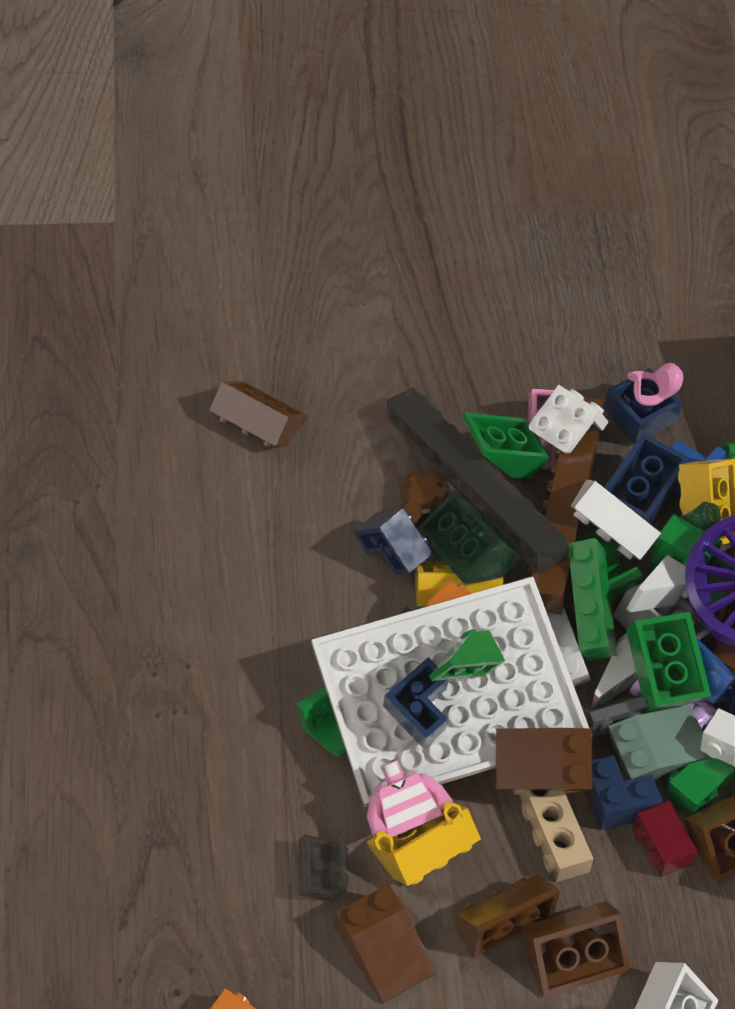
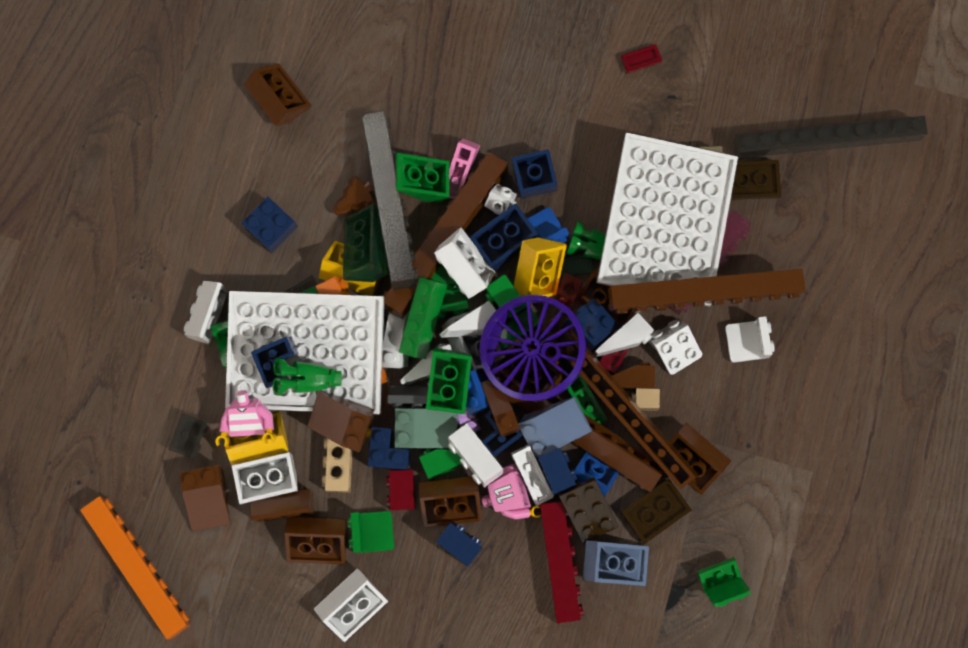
camera: 30 degrees right, 25 degrees up
(276, 693) = (205, 311): none -> white slope
(318, 563) = (269, 224): none -> dark blue brick
(396, 538) = (320, 223): dark blue brick -> none
(463, 879) = (265, 478): none -> white slope
(470, 657) = (312, 342): green slope -> none
(472, 706) = (304, 377): none -> green piece
(566, 419) = (470, 174): white bracket -> none
(608, 440) = (500, 199): none -> white brick
(649, 909) = (371, 532): none -> green bracket
(667, 377) = (553, 166): bright pink piece -> none
(701, 257) = (641, 59): none -> dark red tile
(703, 515) = (521, 283): clear green cone -> none

